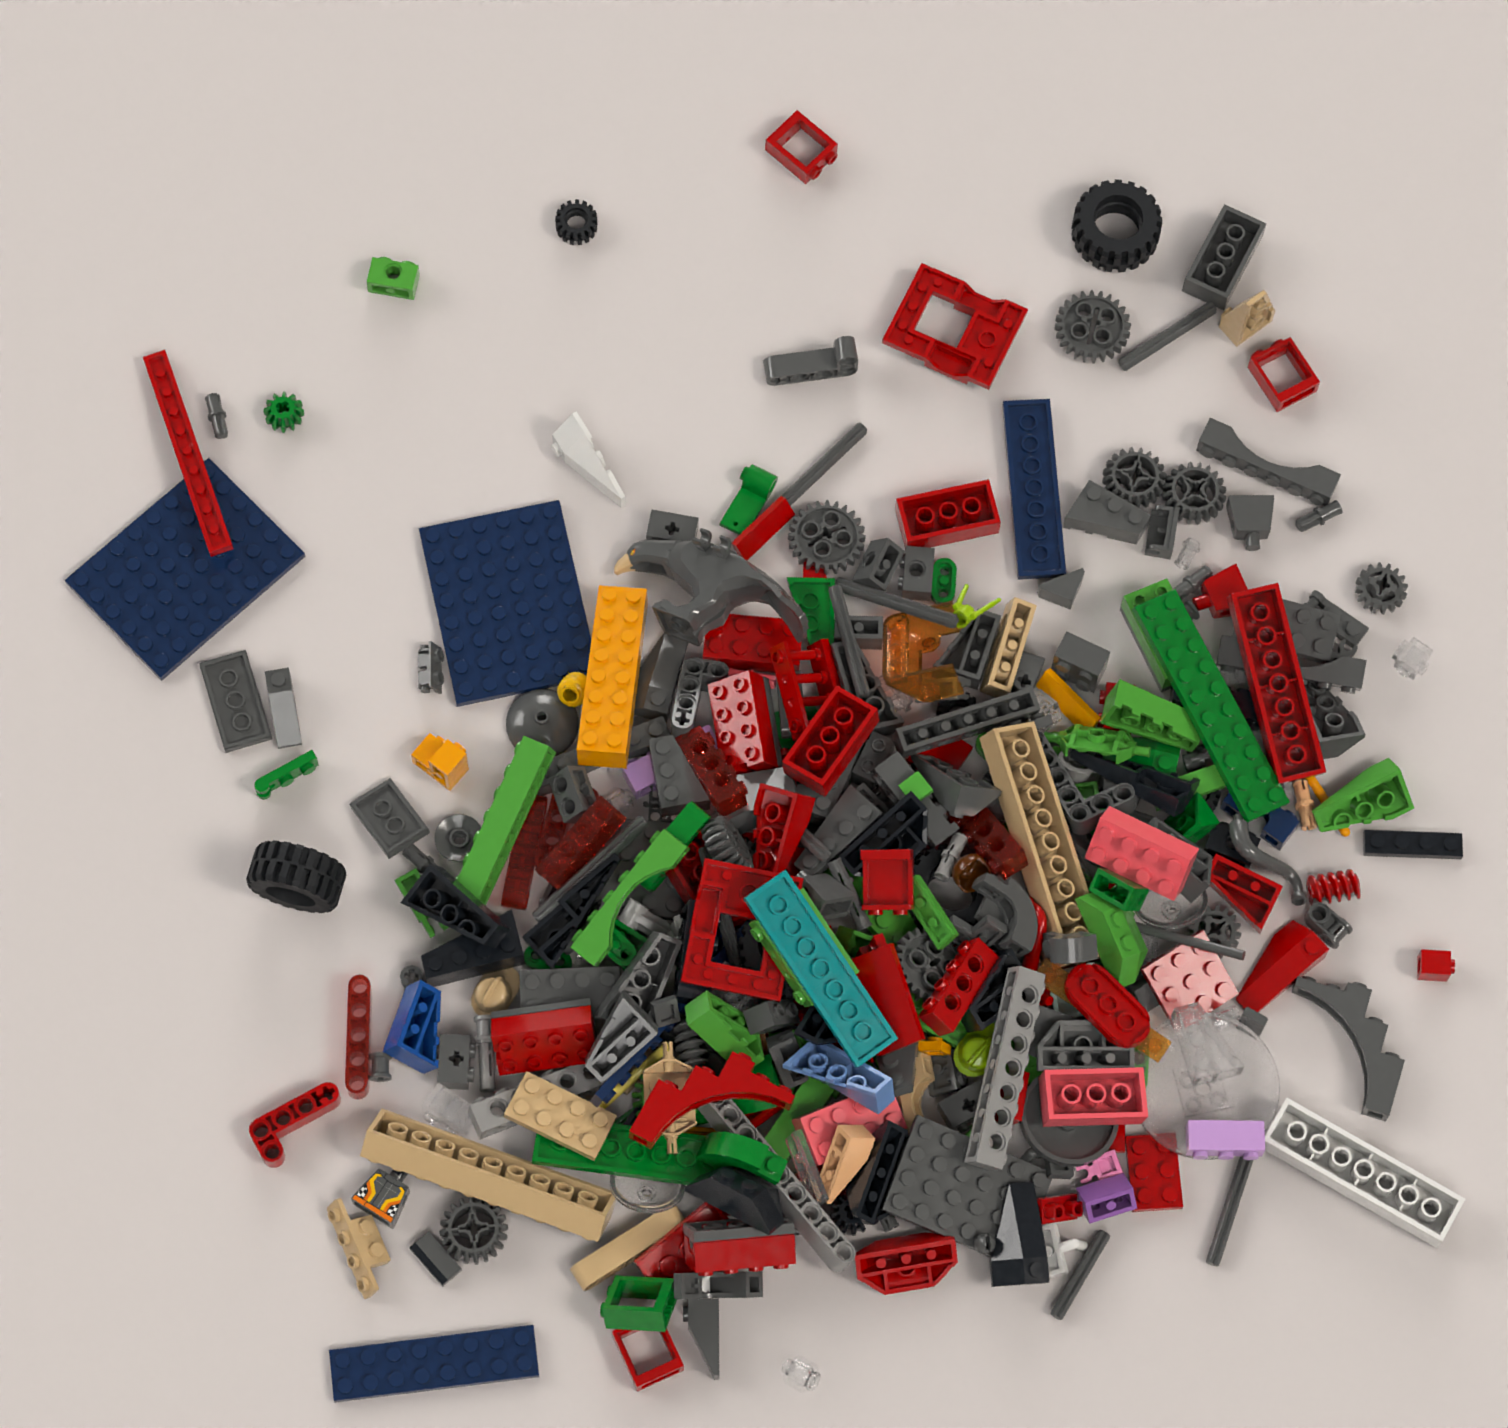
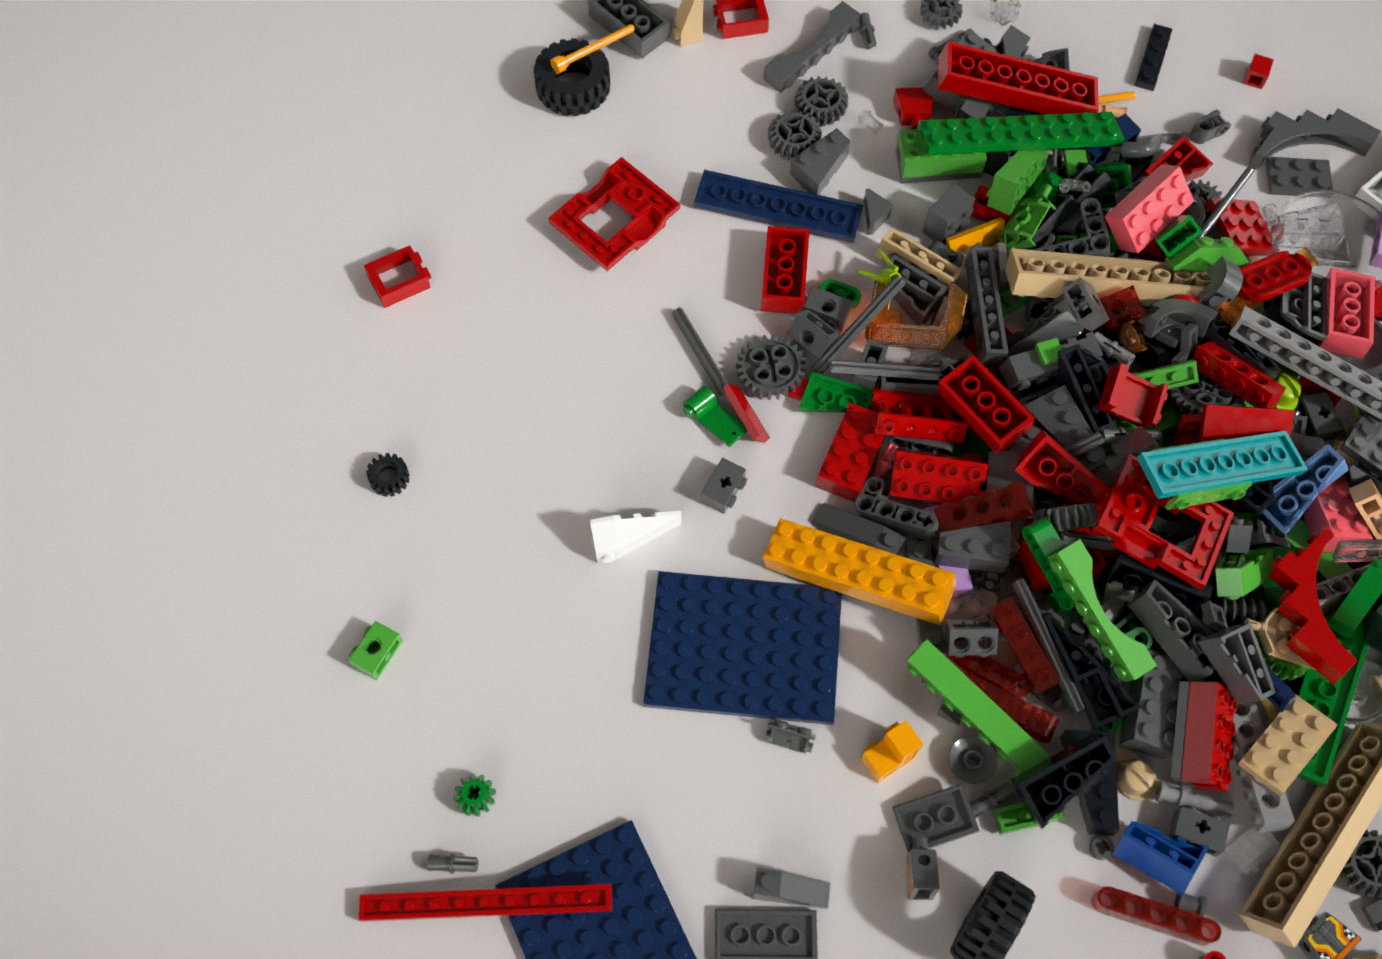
camera: 70 degrees left, 5 degrees down
(286, 774) = (863, 908): green plate -> none
(333, 814) = (922, 880): none -> dark grey torso
(556, 730) = (872, 667): dark grey dish -> none
(572, 689) = (854, 612): yellow head -> none
(714, 579) = (798, 455): dark grey animal -> none
(813, 364) = (606, 326): dark grey beam -> none
(983, 808) = (1085, 304): none -> dark grey brick
(1113, 331) = (650, 123): dark grey gear -> none
(1114, 205) = (560, 63): none -> light orange piece
(1156, 778) = (1074, 185): none -> clear arm
(1162, 531) = (852, 128): dark grey hinge -> none
(1167, 336) = (677, 78): dark grey axle -> none
(1192, 583) = (895, 122): dark grey pin -> none
(1250, 518) = (856, 71): dark grey torso -> none
(1253, 1020) = (1290, 191): dark grey tile -> none
(1287, 956) = (1231, 156): red wedge -> none
(1297, 1041) = (1297, 175): none -> dark grey plate
(1333, 885) = (1181, 112): red piece -> none
(1370, 796) = (1111, 63): bright green wedge -> none

